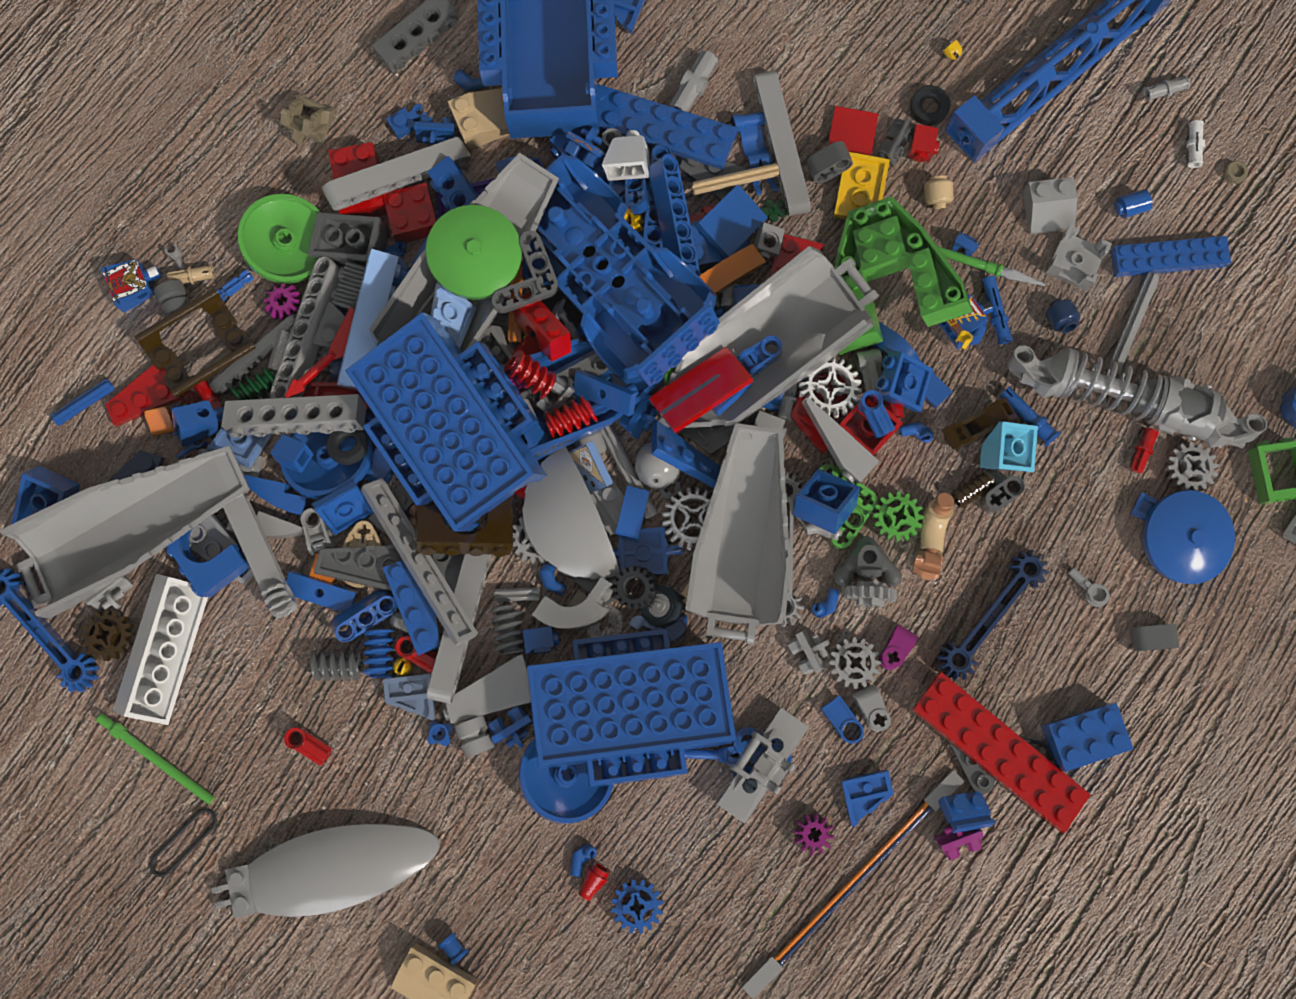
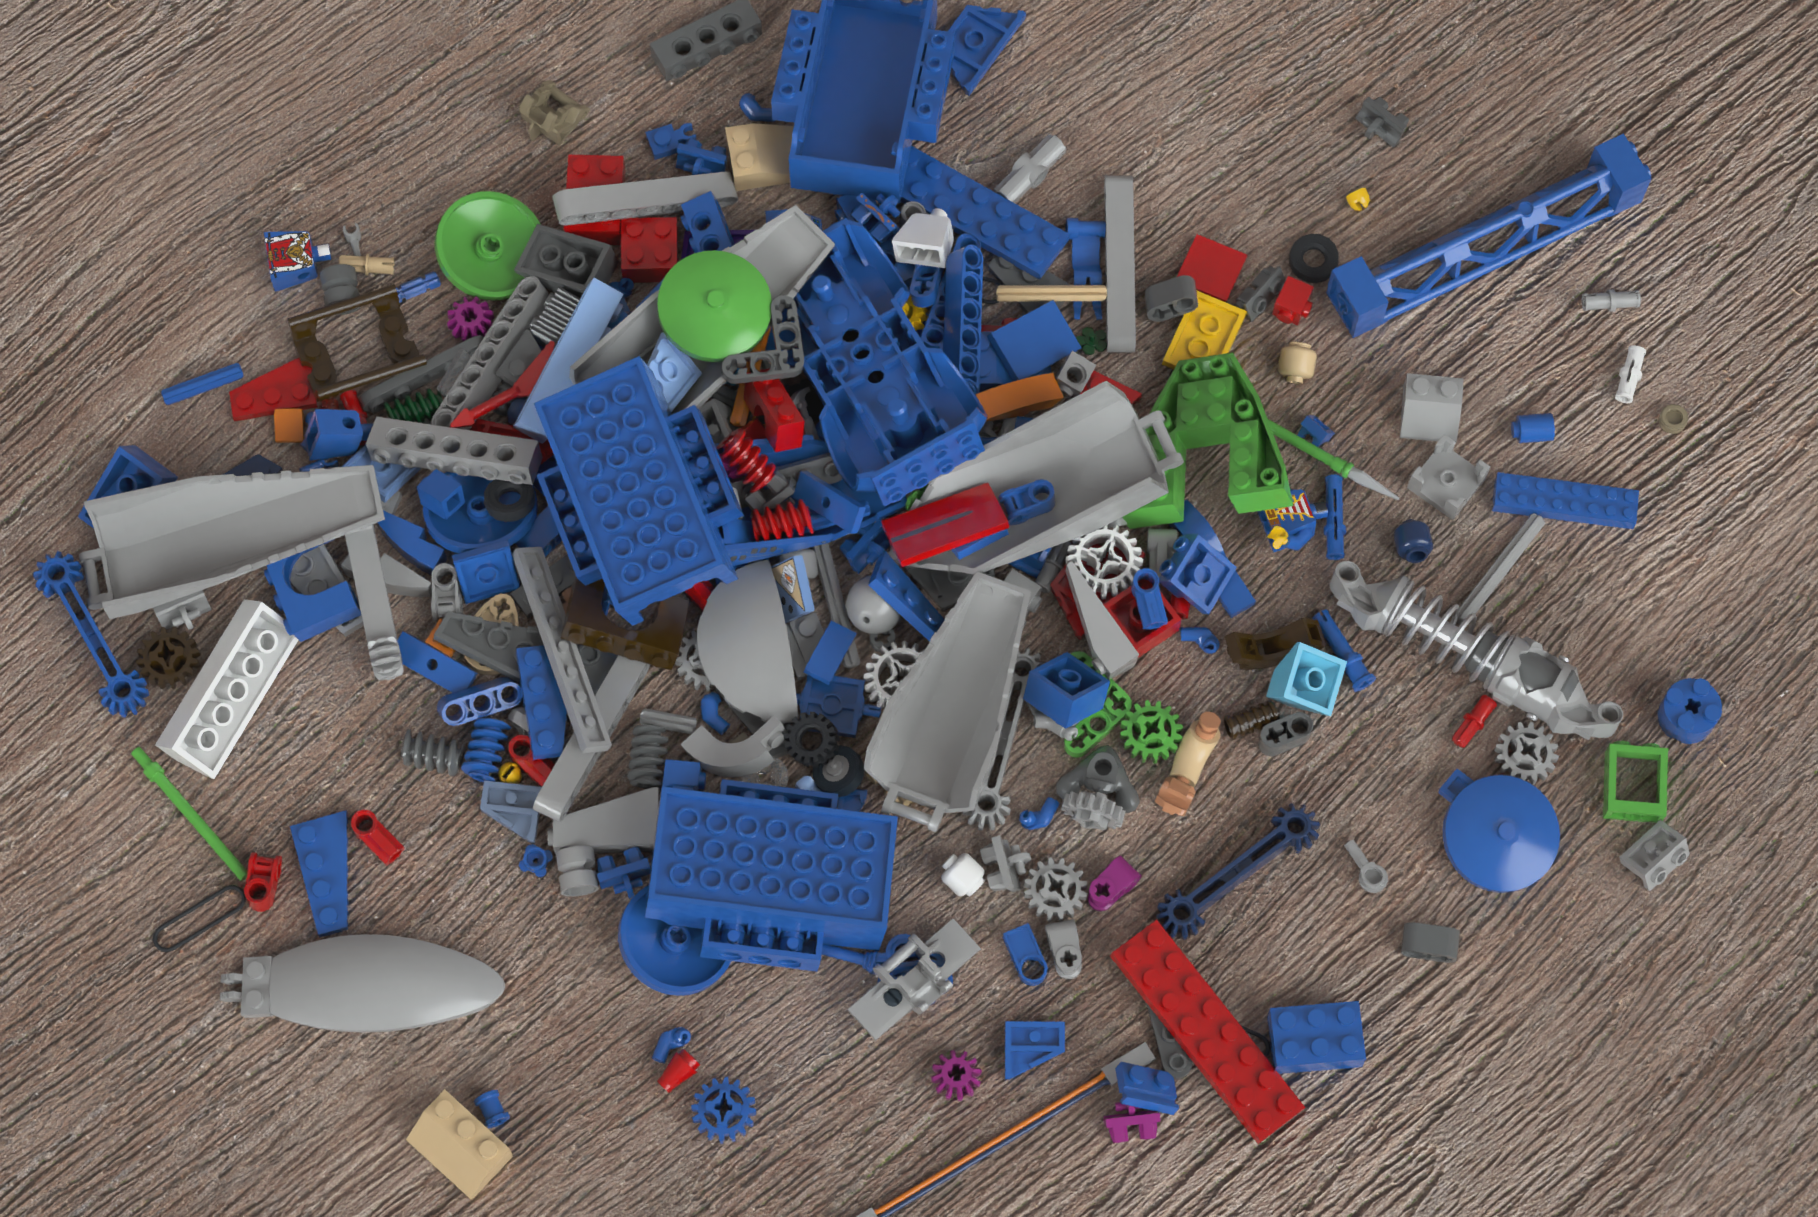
camera: 10 degrees right, 10 degrees down
(225, 800) = (264, 875): none -> red piece
(271, 774) = (323, 862): none -> blue wing
(779, 668) = (962, 874): none -> white head

